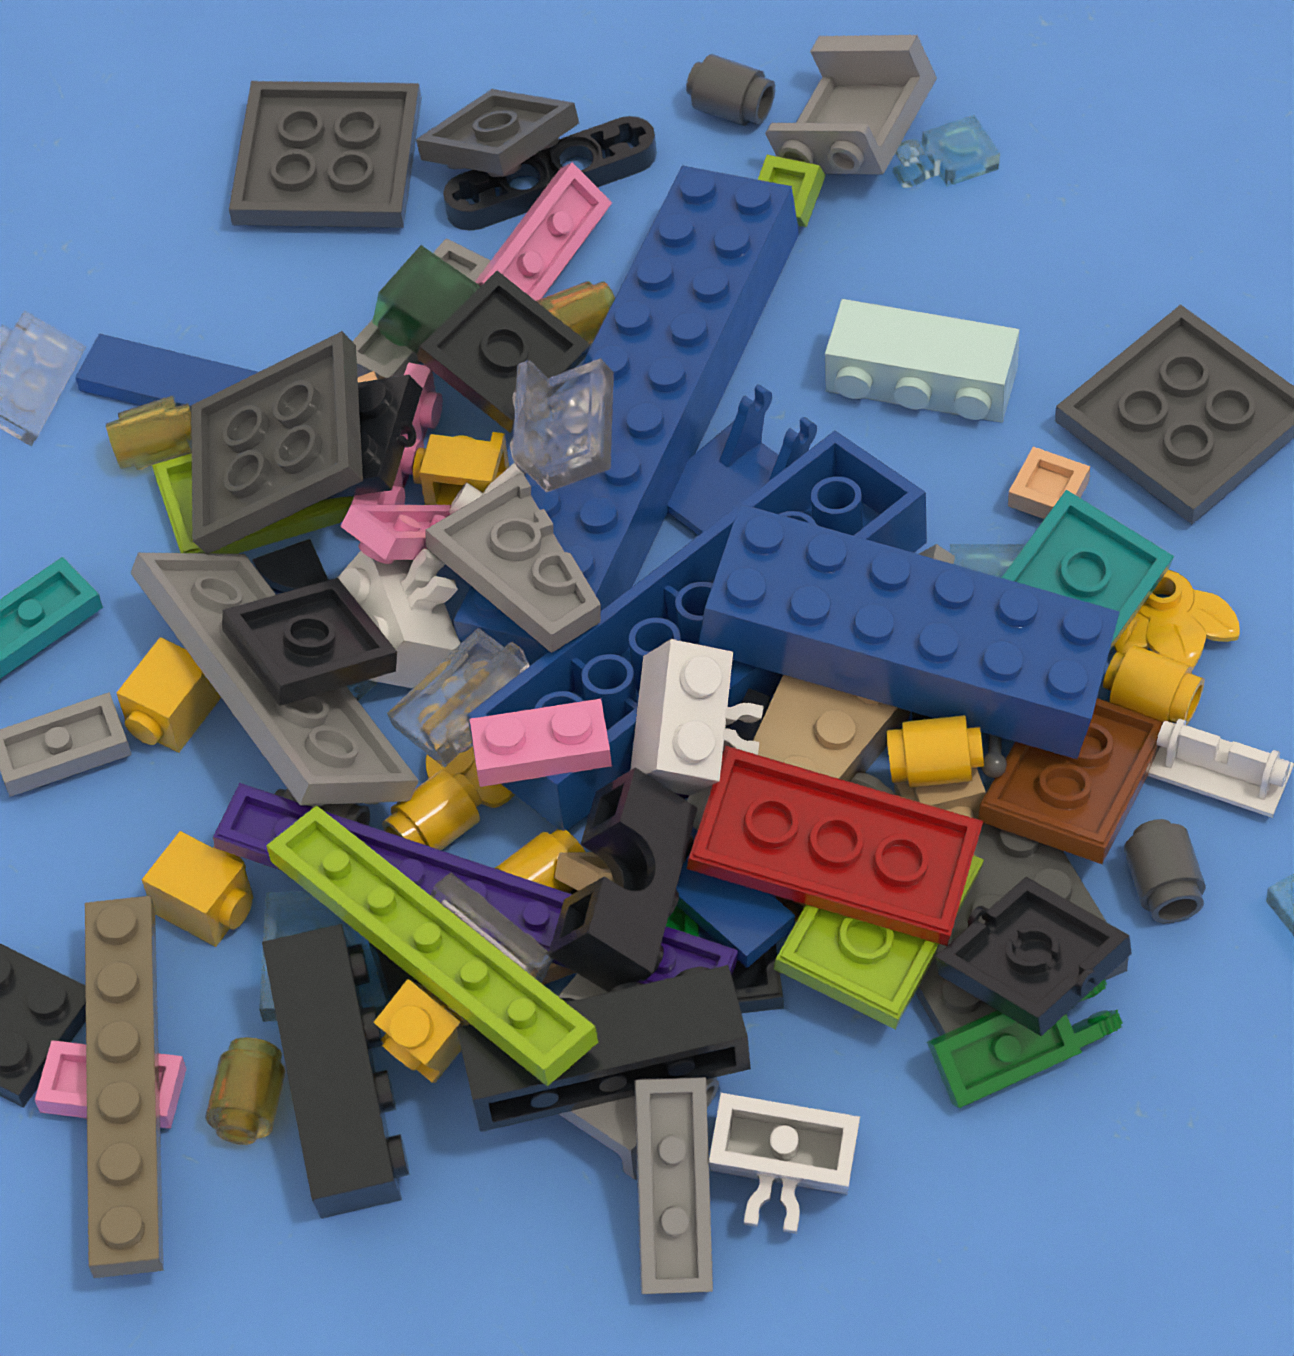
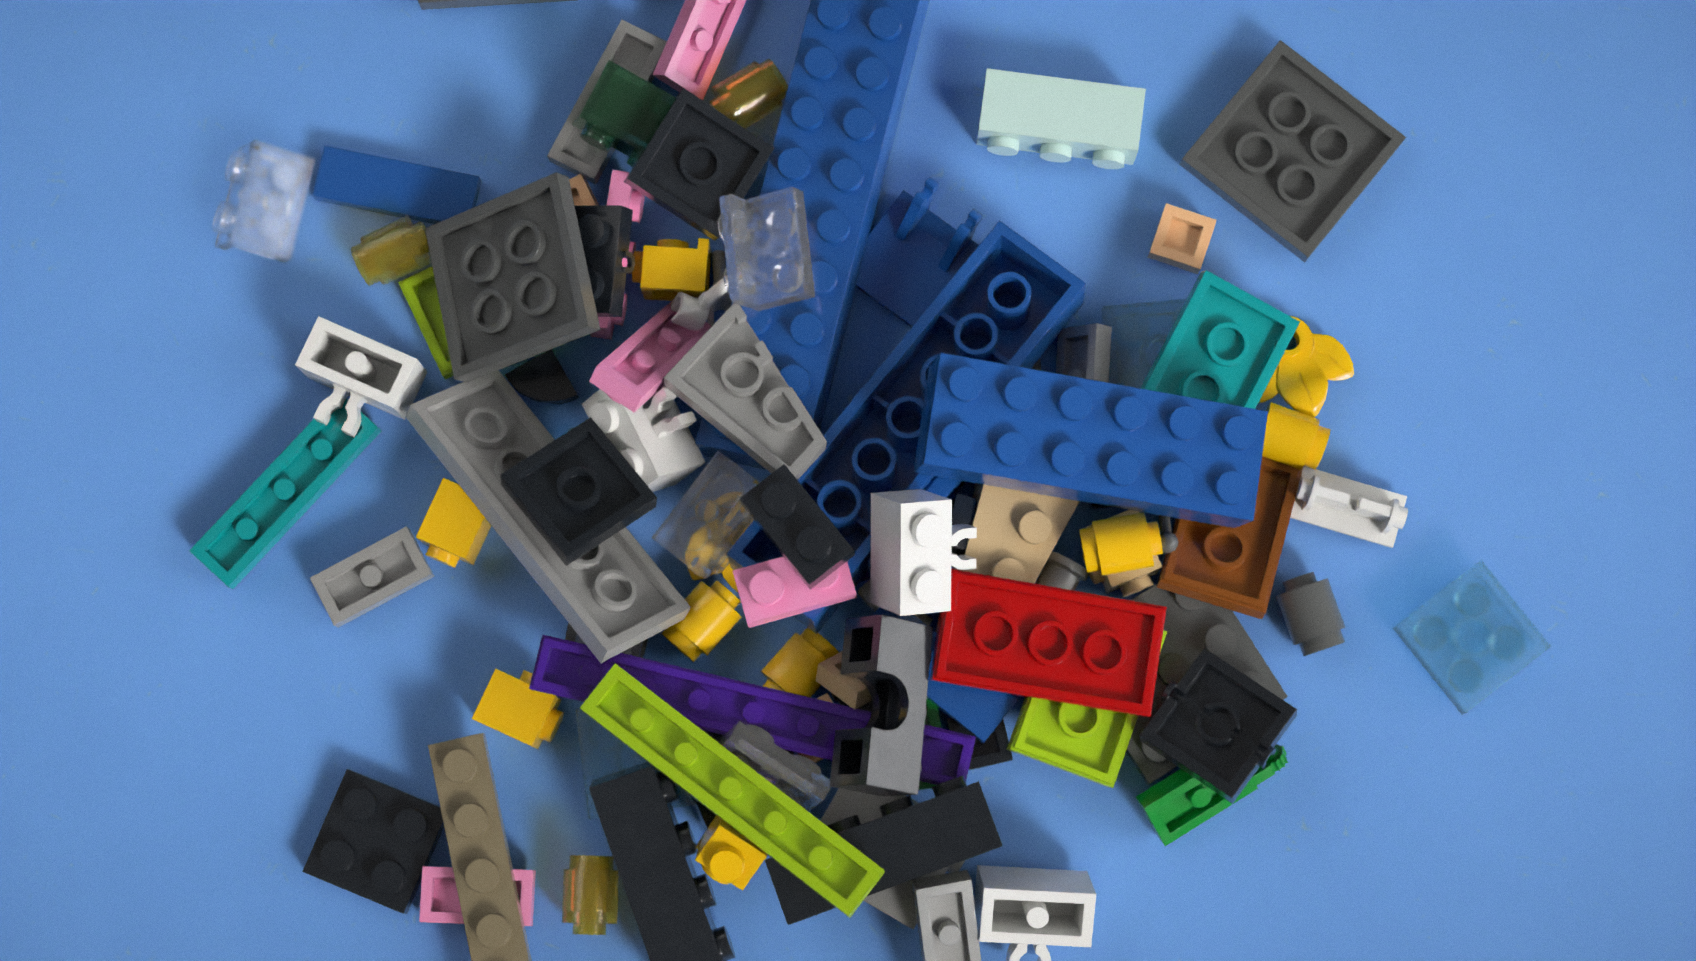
camera: 10 degrees left, 25 degrees up
(86, 532) = (360, 370): none -> white brick
(550, 671) = (797, 526): none -> black plate

